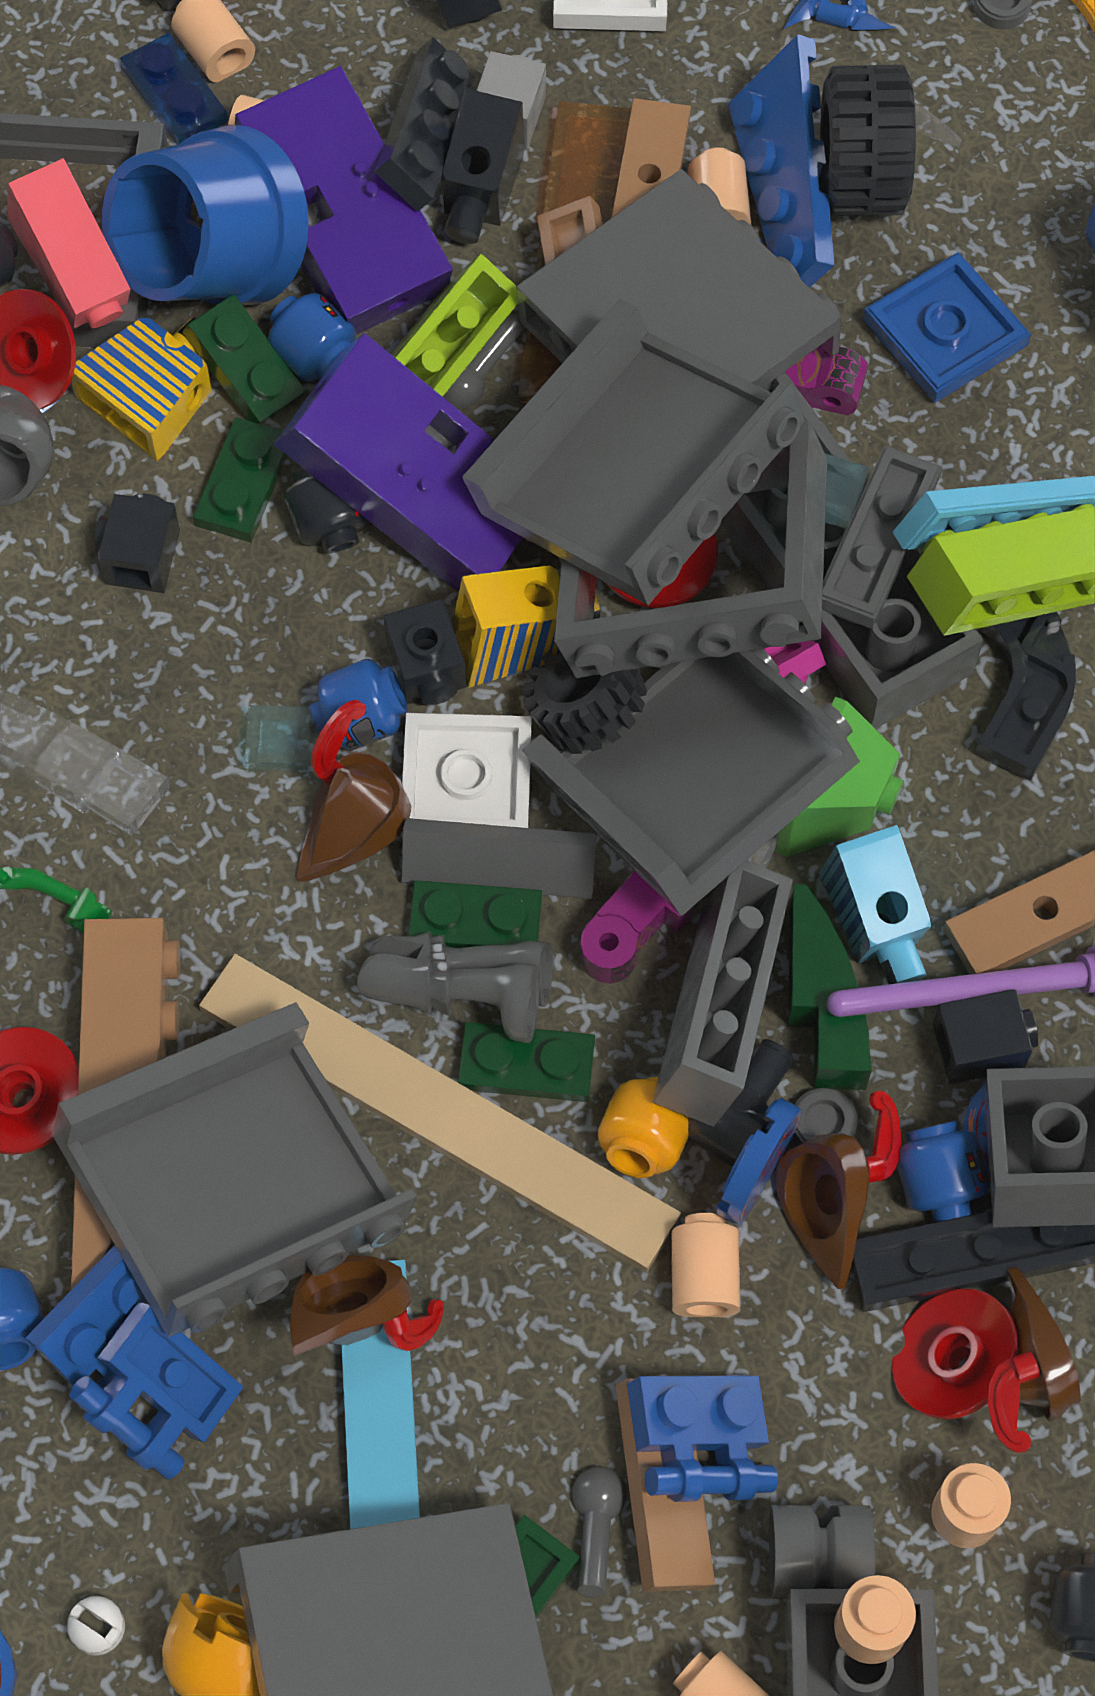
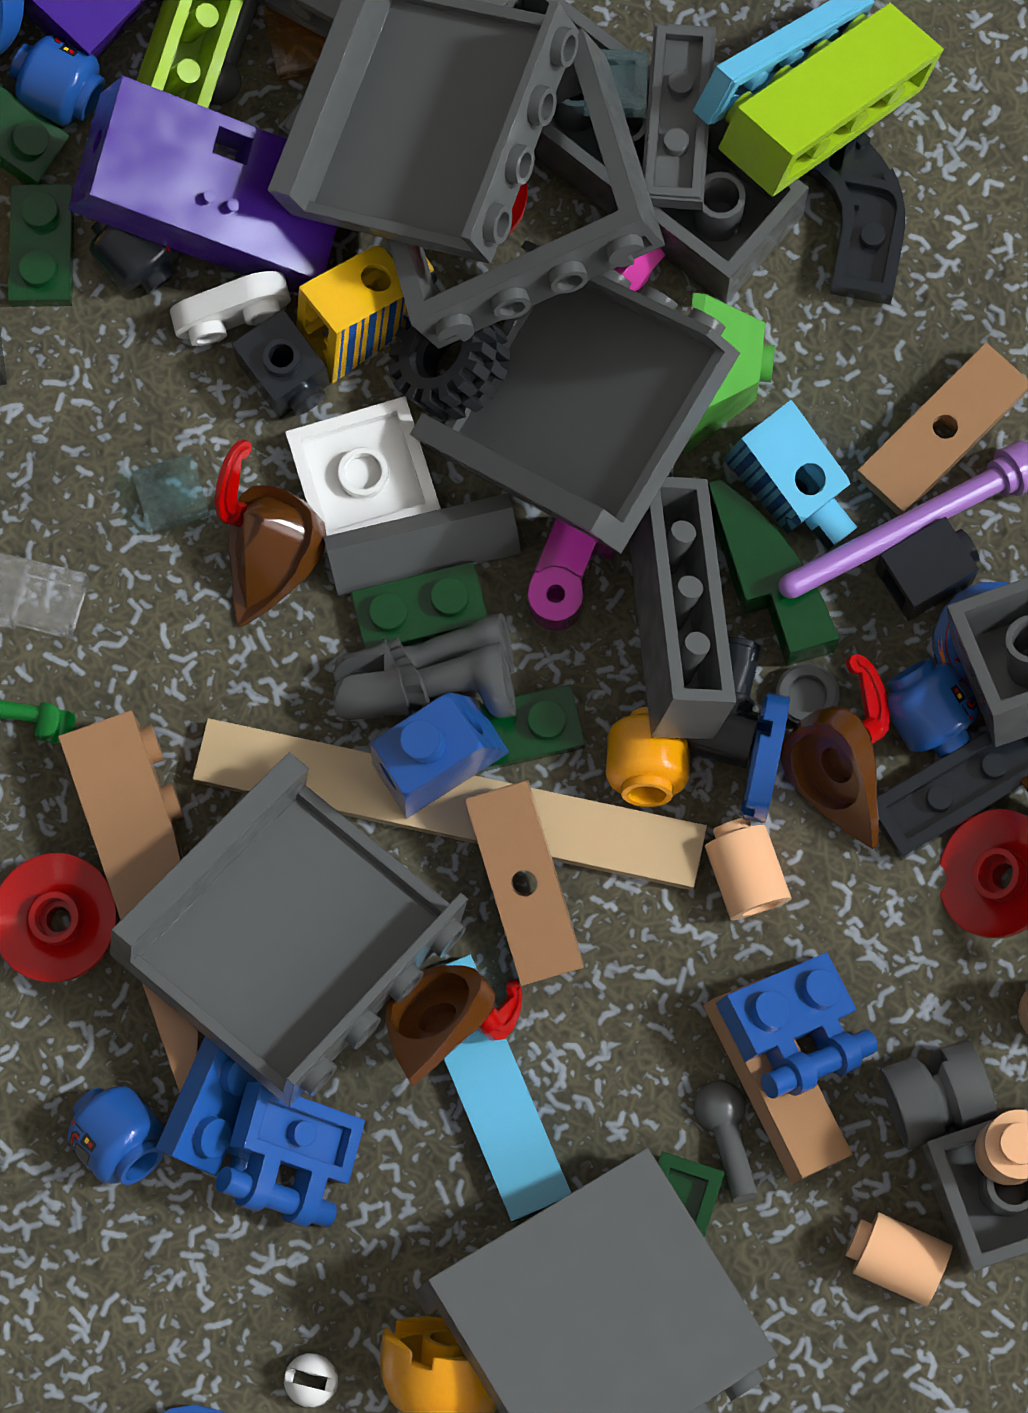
camera: 15 degrees left, 10 degrees up
(371, 685) = (232, 420): blue head -> none
(395, 583) = (240, 301): none -> white plate
(438, 1047) = (435, 751): none -> blue torso
(480, 1162) = (536, 921): none -> medium nougat tile

